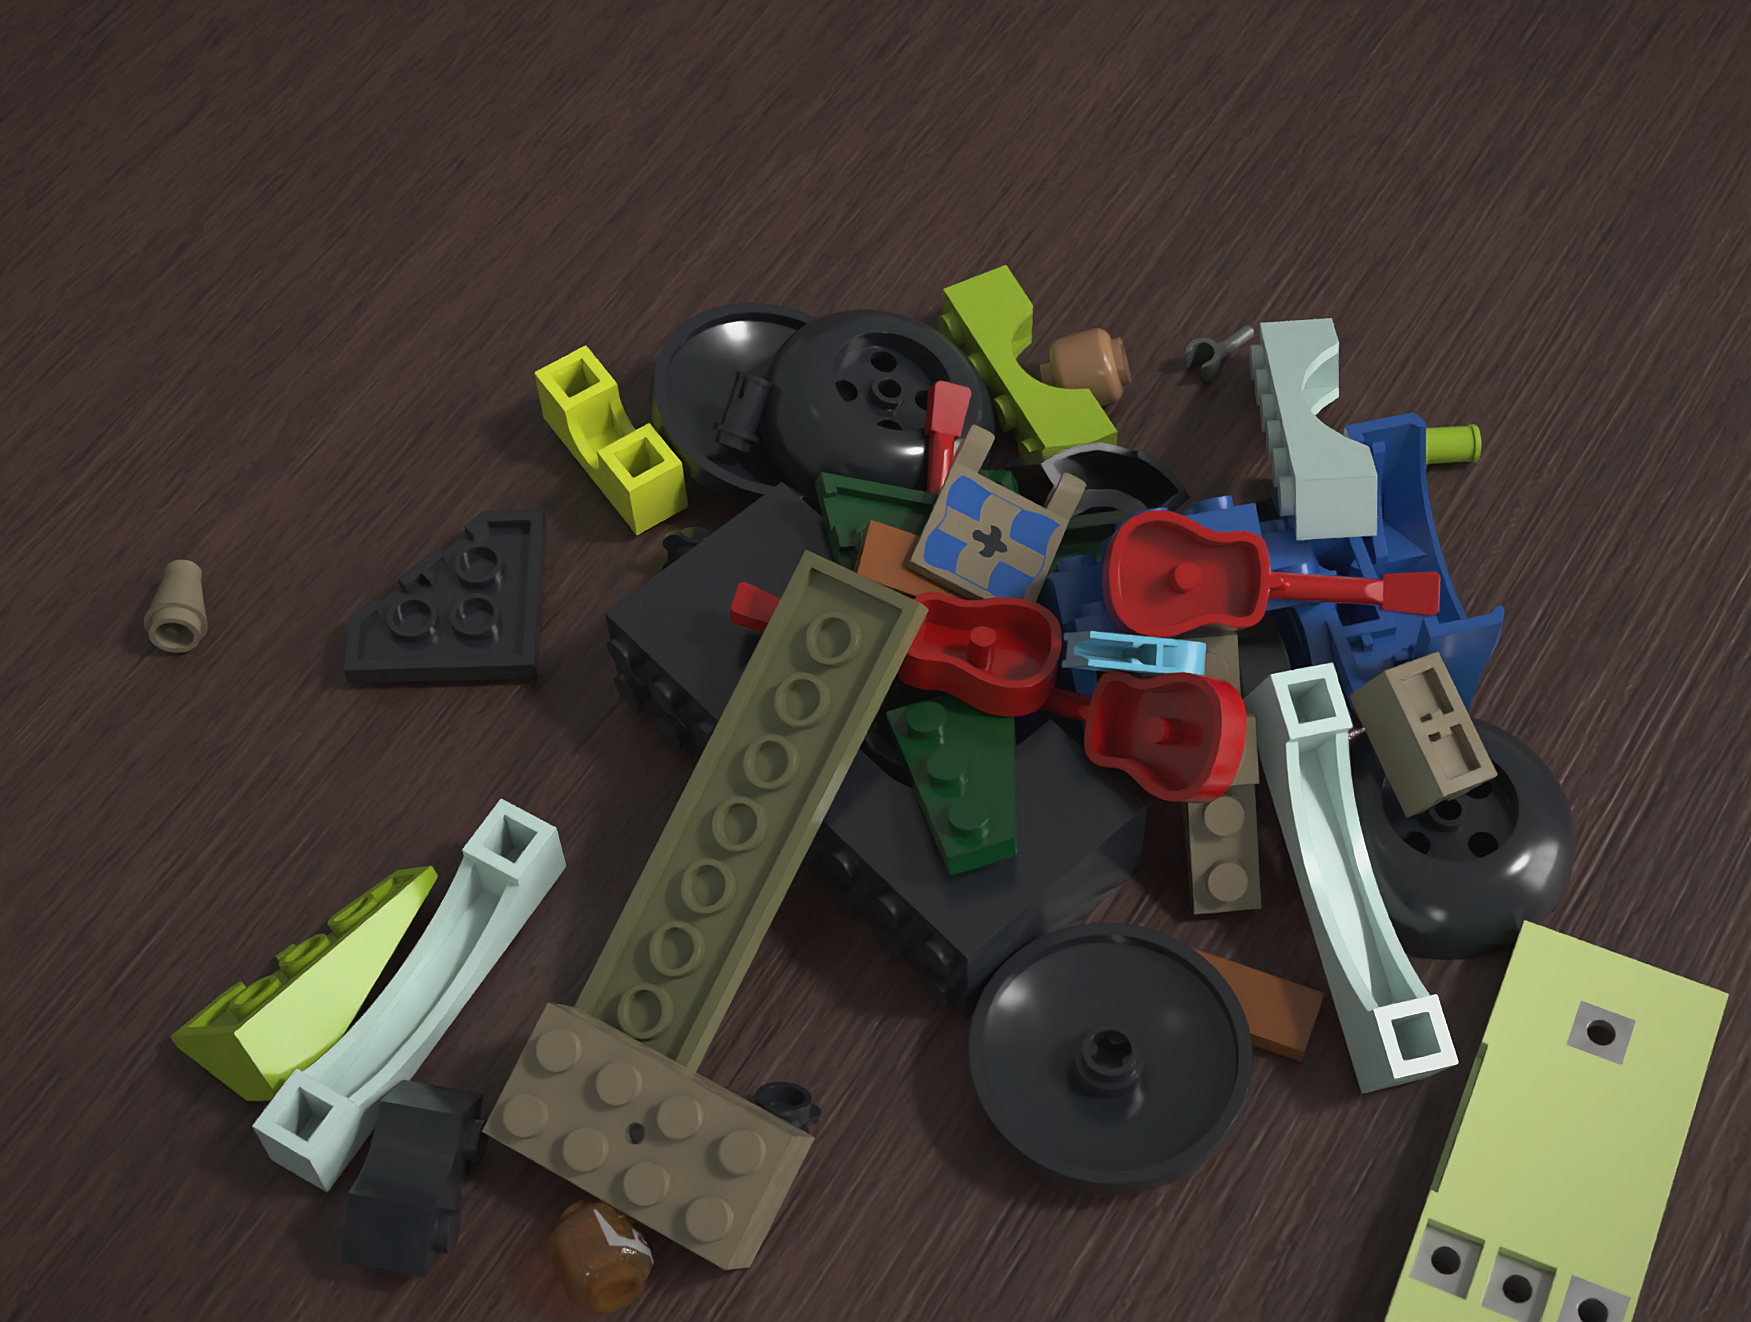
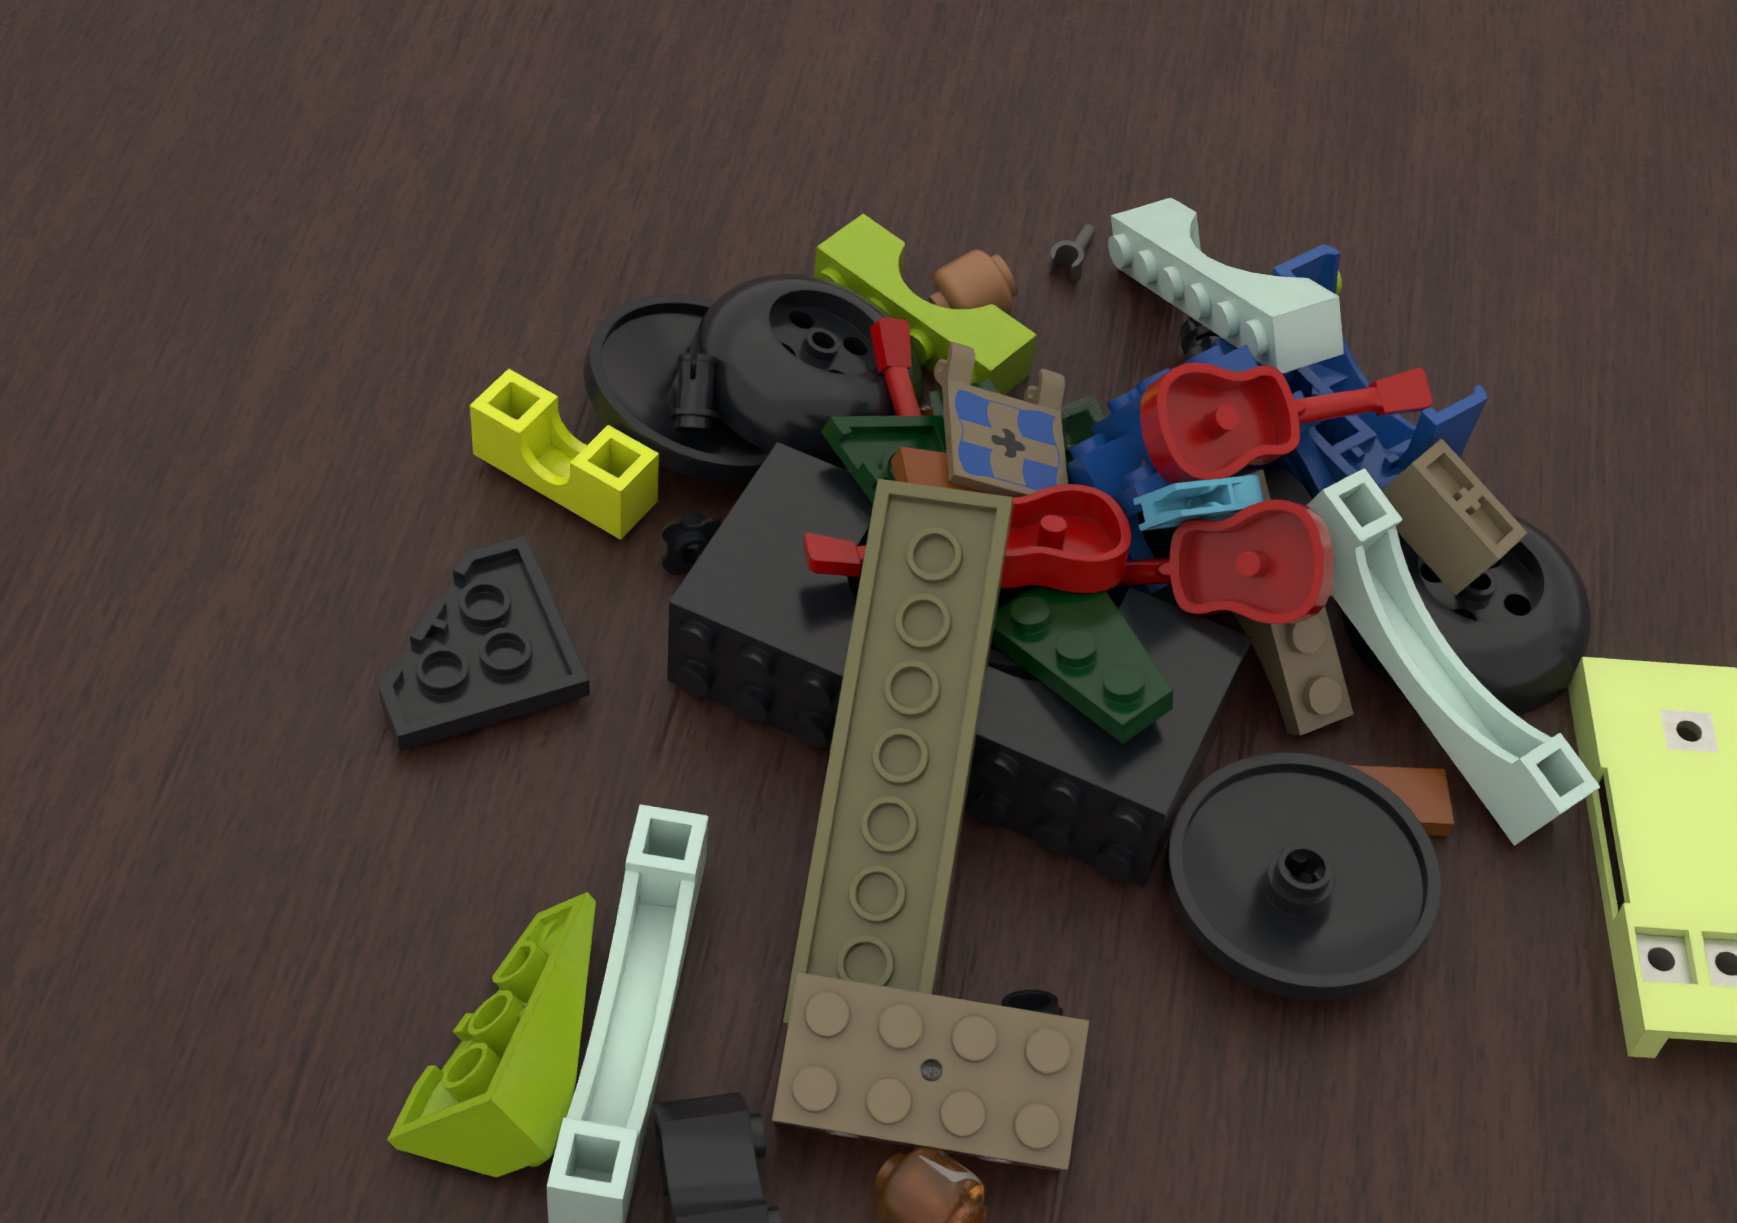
camera: 30 degrees left, 5 degrees down
(177, 612) = (187, 727): dark tan cone -> none
(1112, 474) = (1083, 367): black brick -> none

